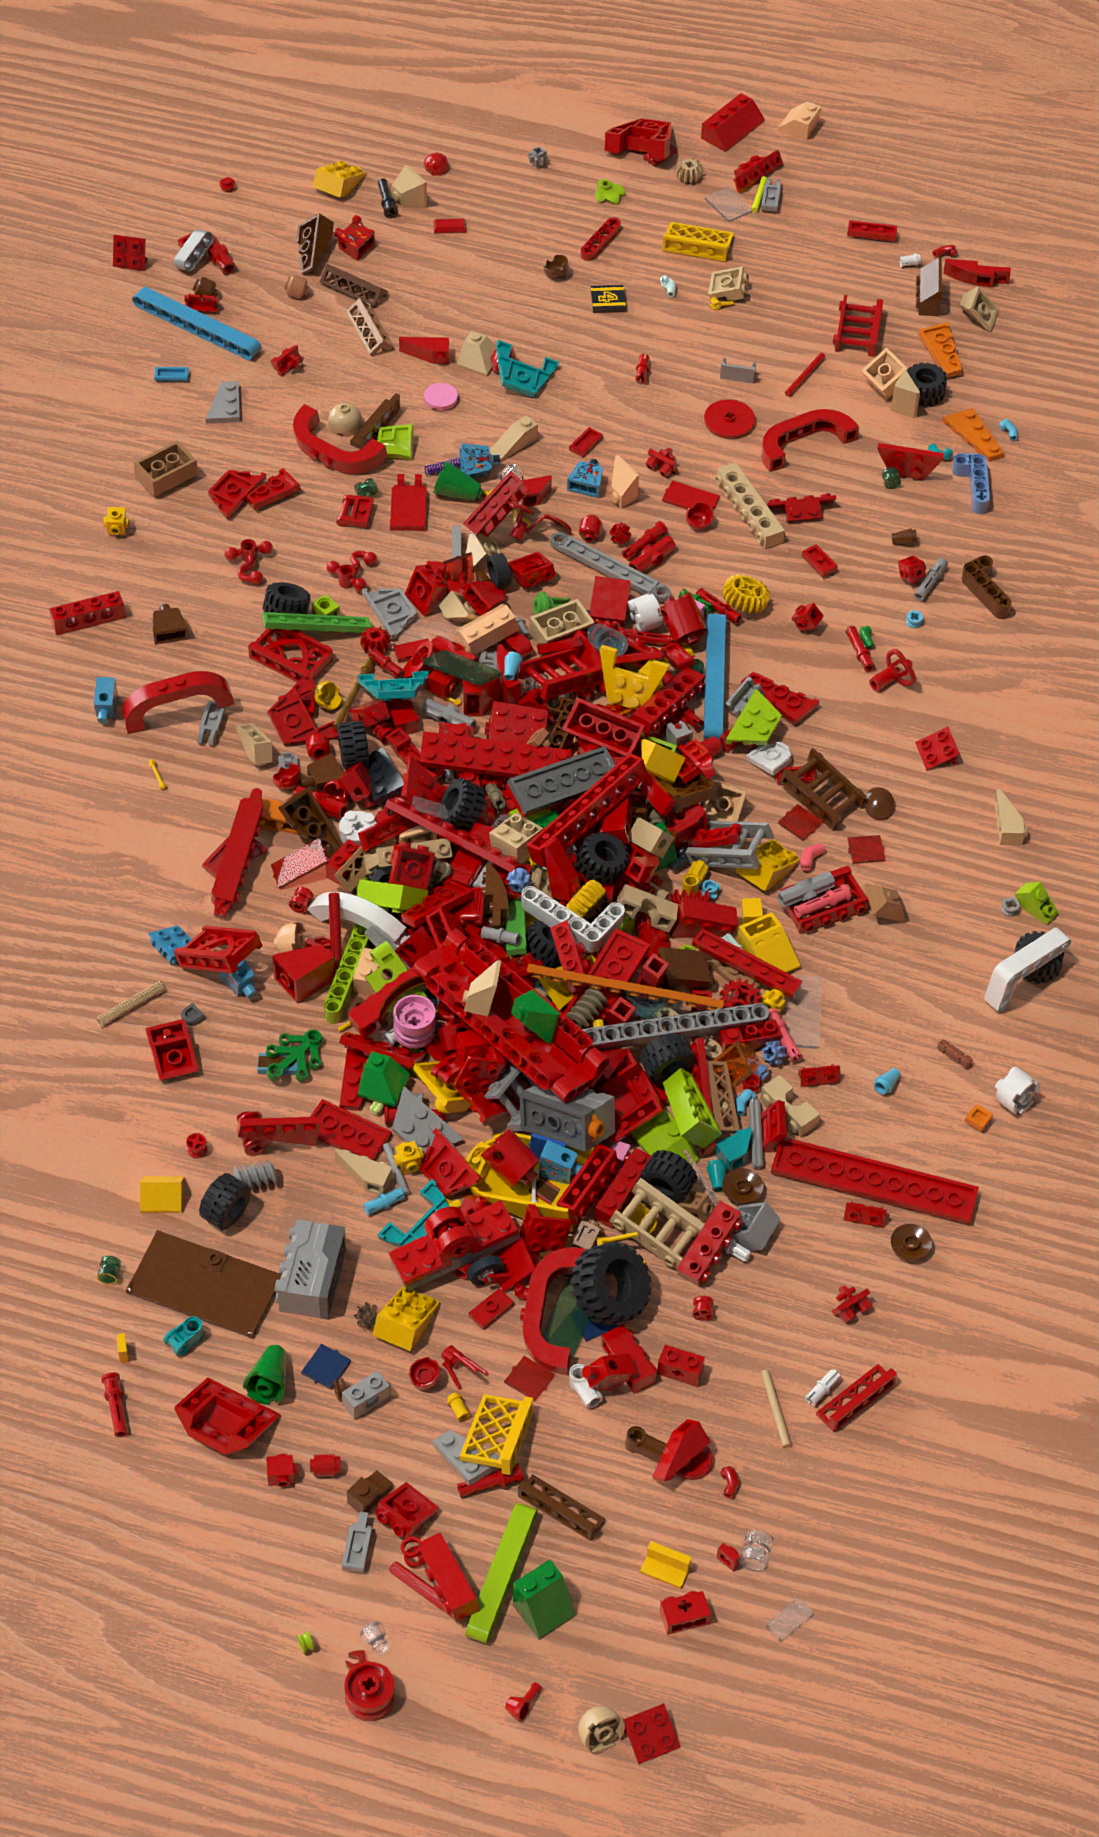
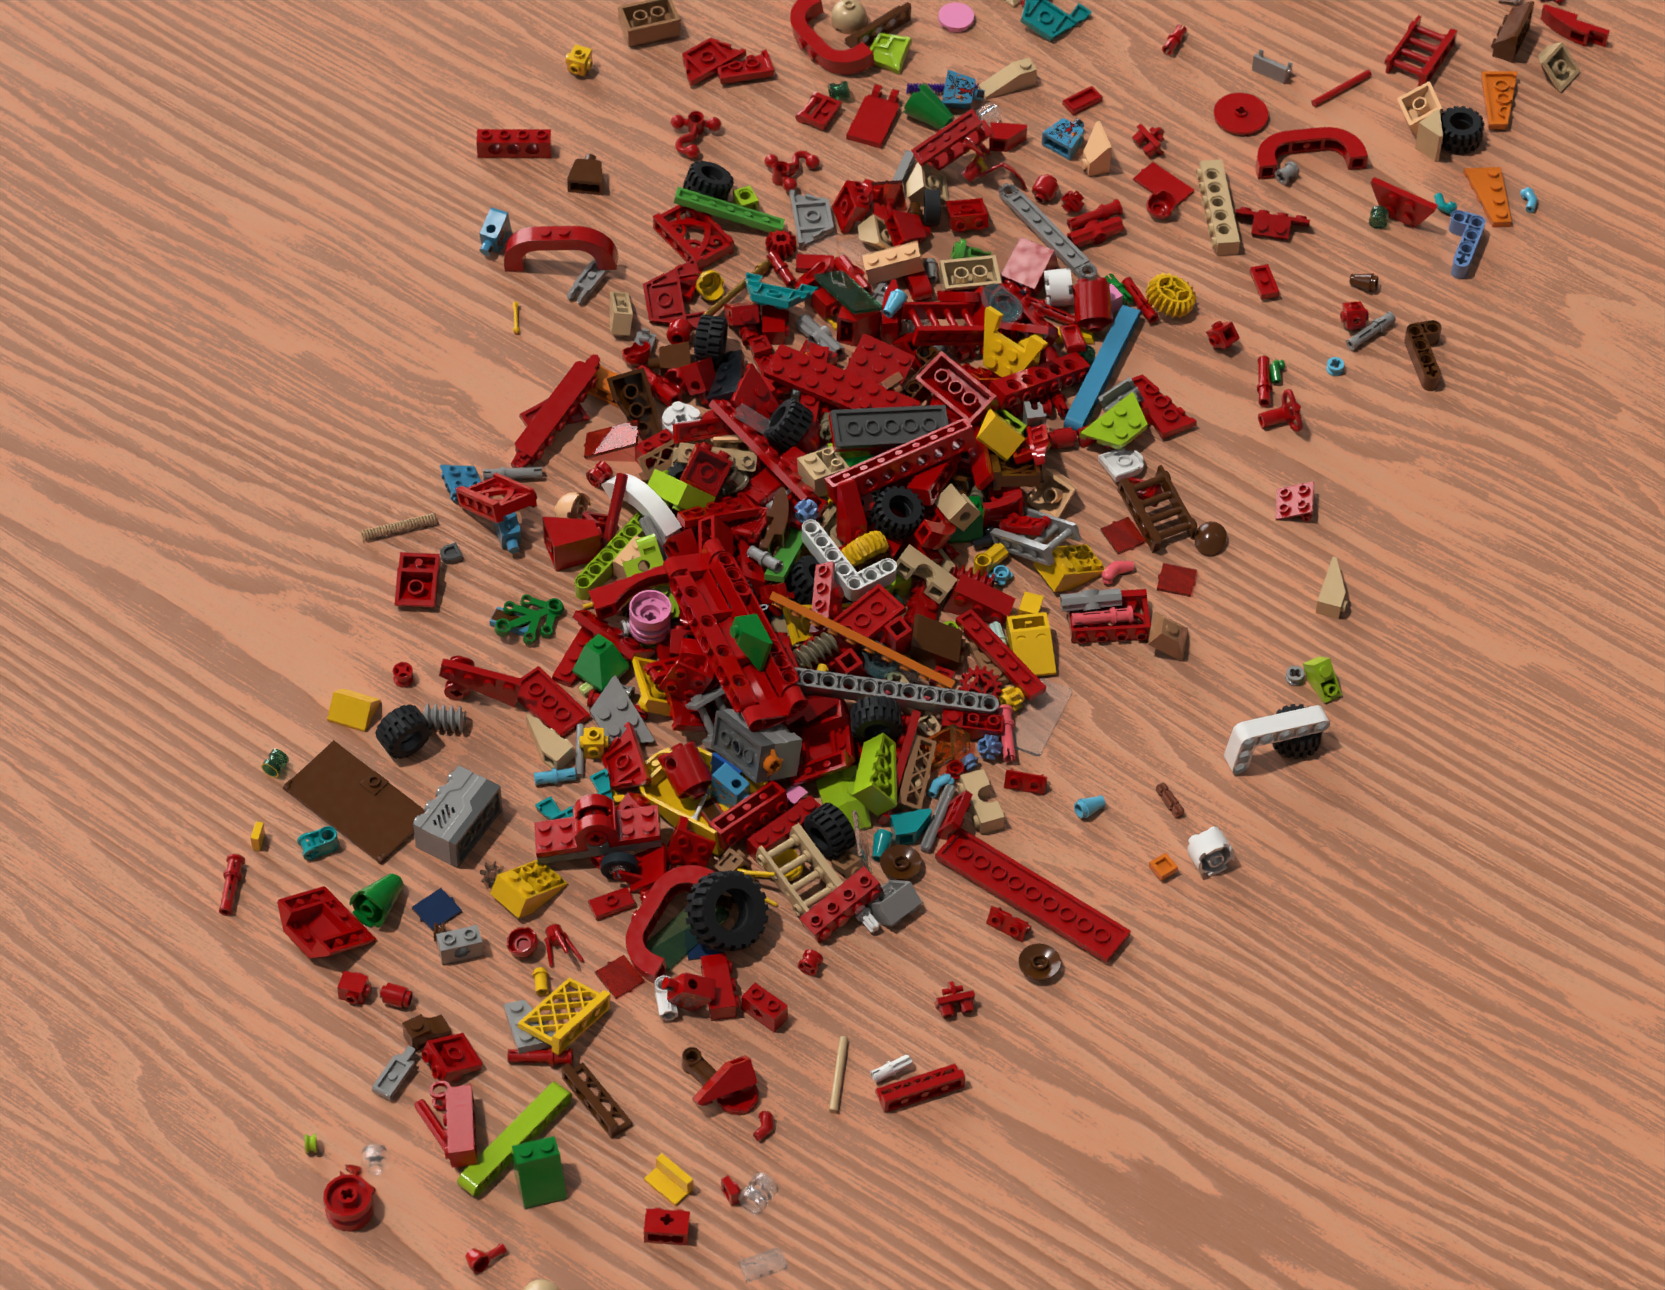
camera: 20 degrees right, 0 degrees up
(220, 921) = (515, 473): none -> light grey pin
(482, 991) = (713, 603): tan slope -> none
(794, 459) = (1284, 174): none -> light grey bush

